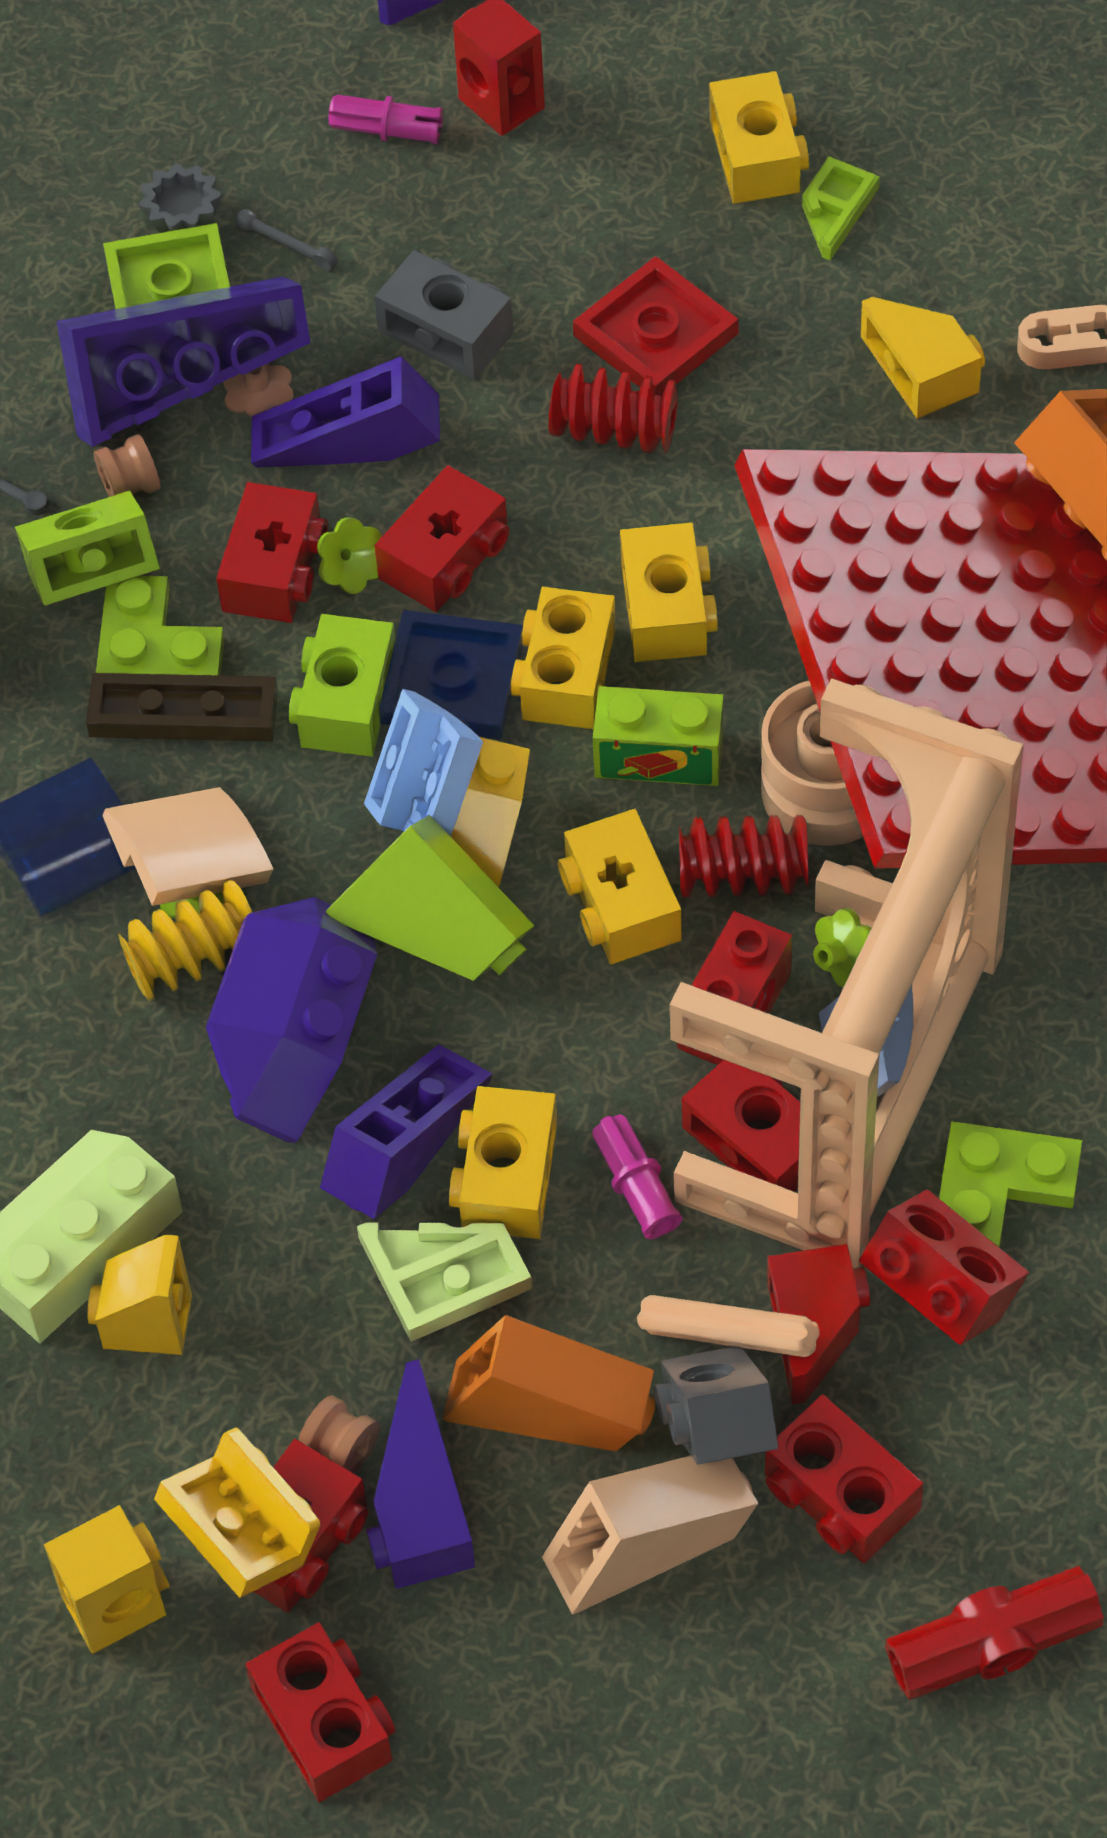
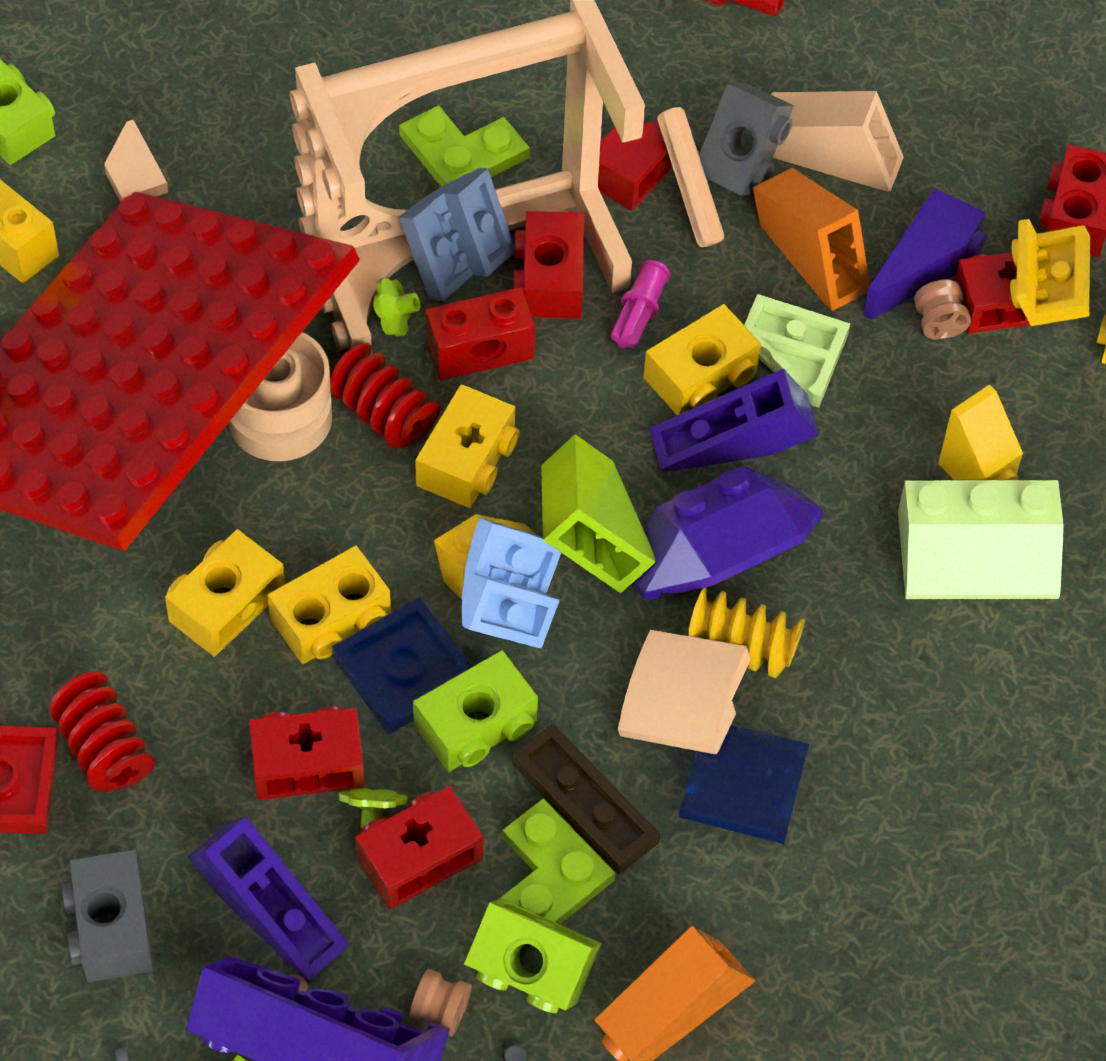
camera: 140 degrees left, 0 degrees up
(658, 735) = (341, 503): lime brick -> none
(855, 1471) = (707, 67): red brick -> none
(943, 1266) = (540, 114): red brick -> none

